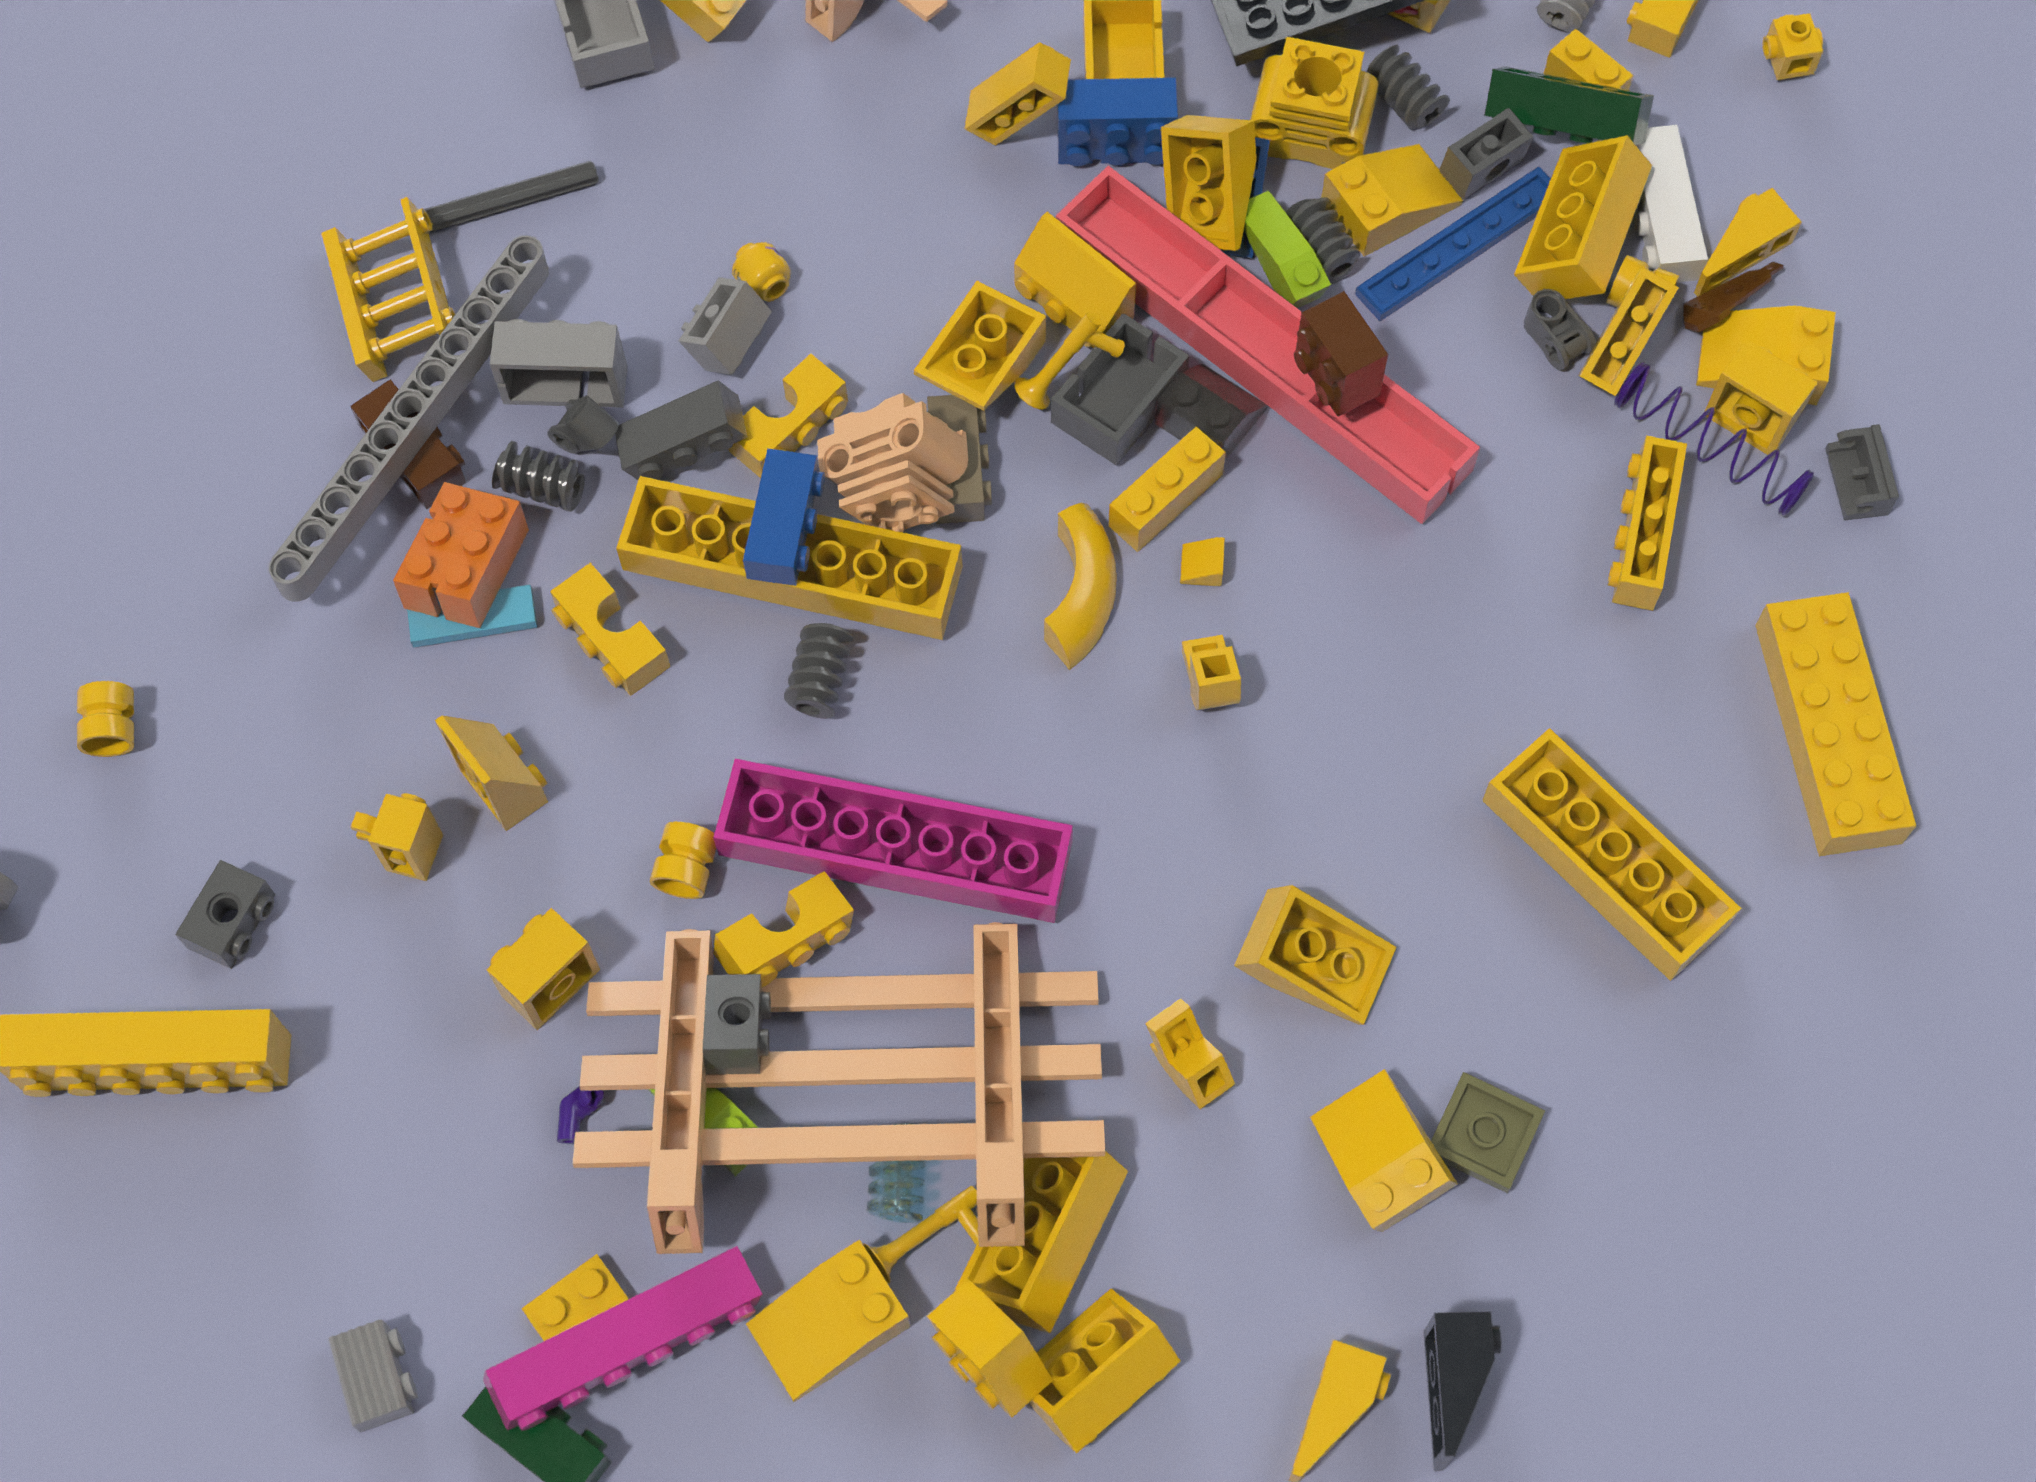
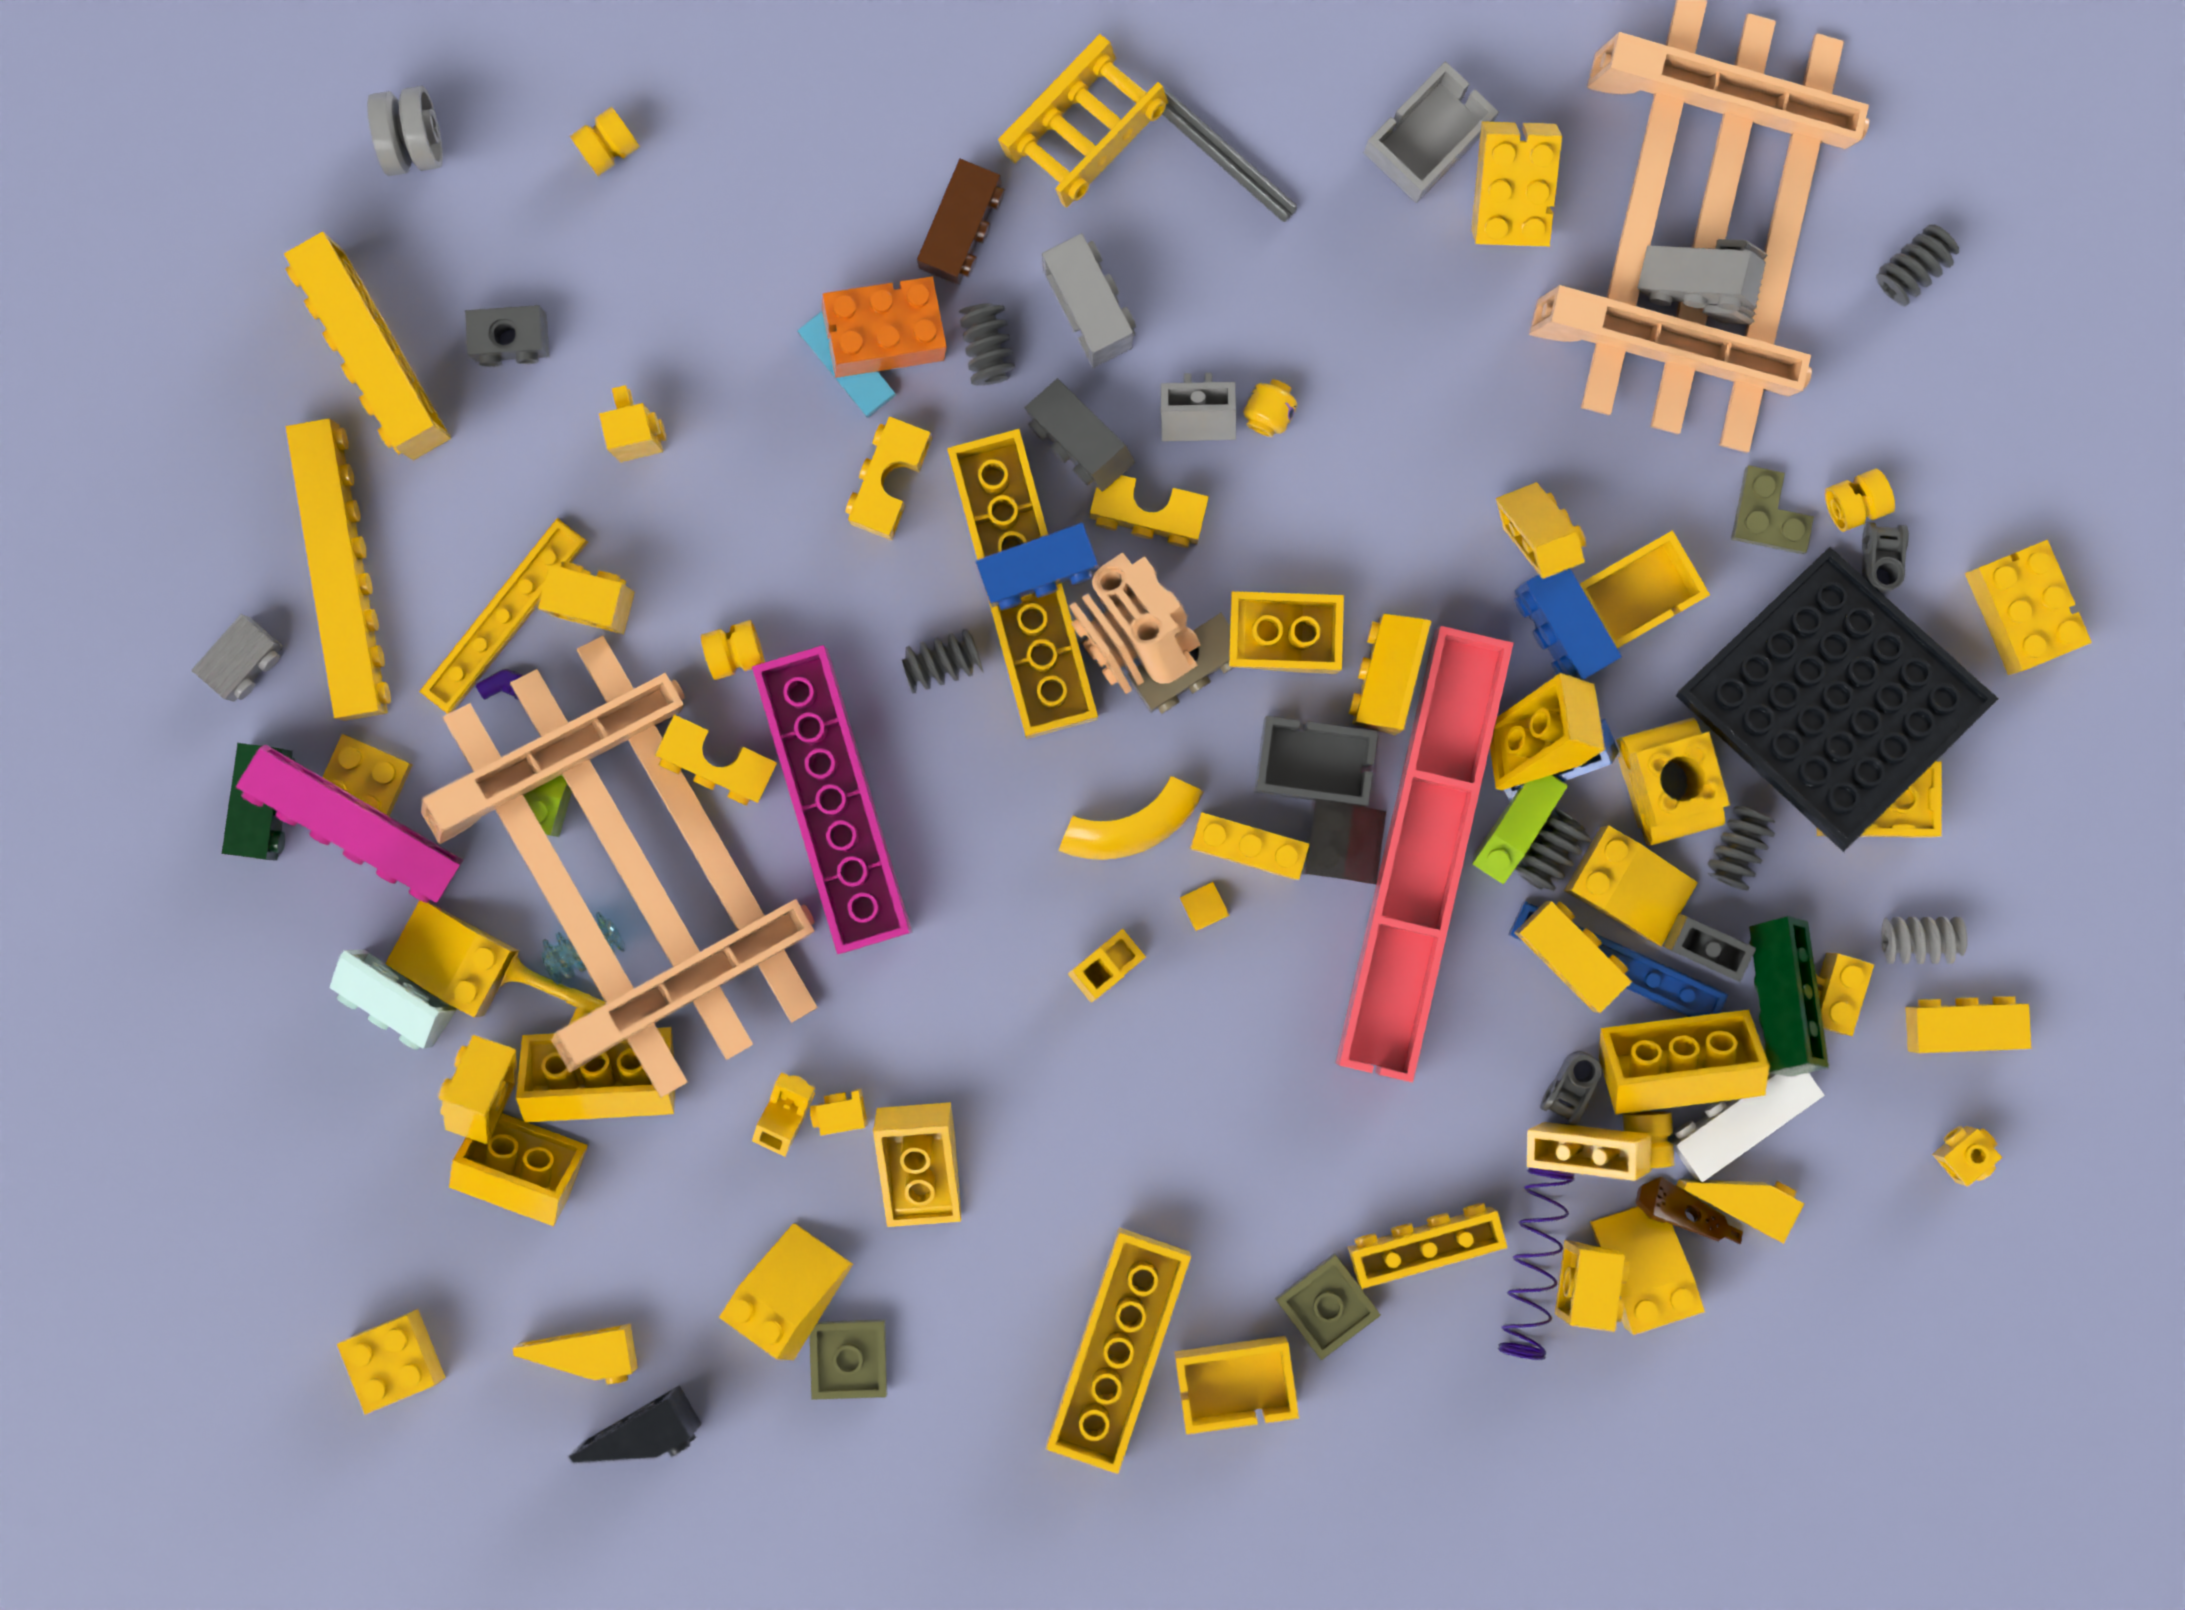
camera: 60 degrees right, 20 degrees up
(348, 1216) = (337, 569): none -> yellow brick
(407, 433) = (956, 205): light grey beam -> none
(494, 768) = (719, 464): yellow slope -> none
(506, 1079) = (501, 618): none -> yellow tile
(583, 426) = (1047, 354): dark grey piece -> none
(730, 1046) = (631, 752): dark grey brick -> none
(836, 1403) = (390, 999): none -> light aqua slope
(1034, 390) = (1282, 691): yellow piece -> none
(1220, 1002) = (839, 1113): none -> yellow brick
(1340, 354) = (1420, 933): reddish brown brick -> none
(1432, 264) = (1574, 955): none -> yellow brick
(1663, 645) = (1327, 1306): none -> olive plate
(1697, 759) = (1232, 1380): none -> yellow piece
(1834, 724) = (1328, 1472): yellow brick -> none
(1862, 473) = (1572, 1395): dark grey hinge -> none

